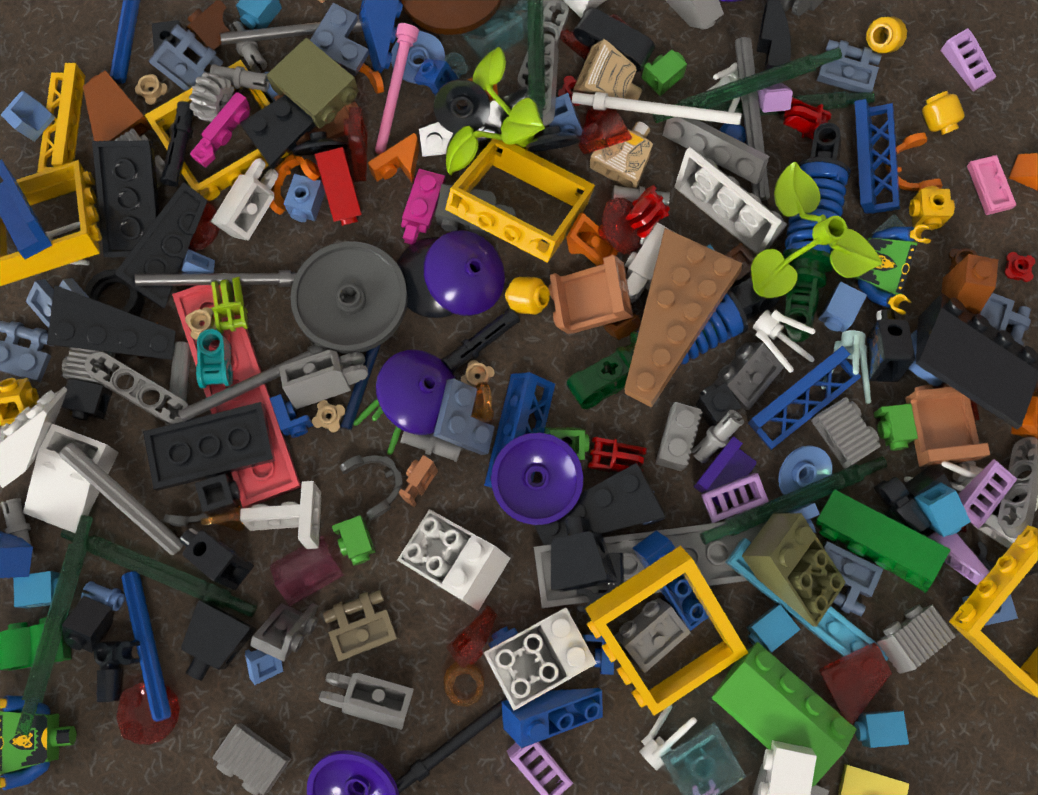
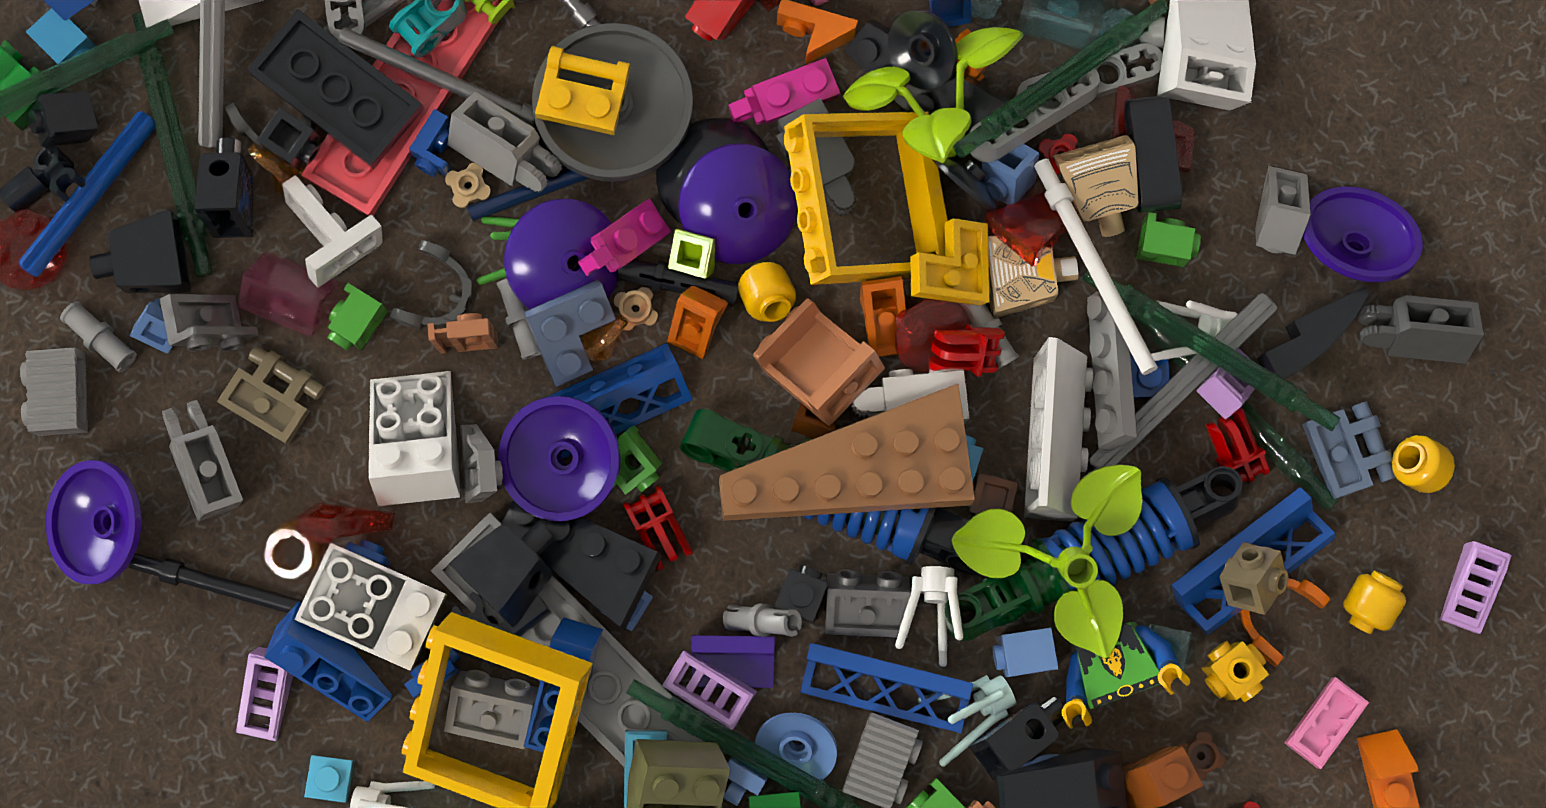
camera: 50 degrees right, 5 degrees up
(111, 598) = (105, 110): medium blue pin -> none
(238, 706) = (98, 336): none -> light grey pin
(334, 314) = (580, 103): none -> yellow plate
(435, 347) = (625, 238): none -> dark pink hinge
(473, 318) = (692, 254): none -> slope
(502, 530) = (480, 469): none -> light grey wing
(515, 346) = (695, 320): none -> orange slope
(600, 180) = (961, 273): none -> yellow plate
(621, 766) = (329, 778): none -> medium azure plate
(678, 436) = (731, 577): light grey brick -> none
(889, 150) = (1254, 578): none -> dark tan brick

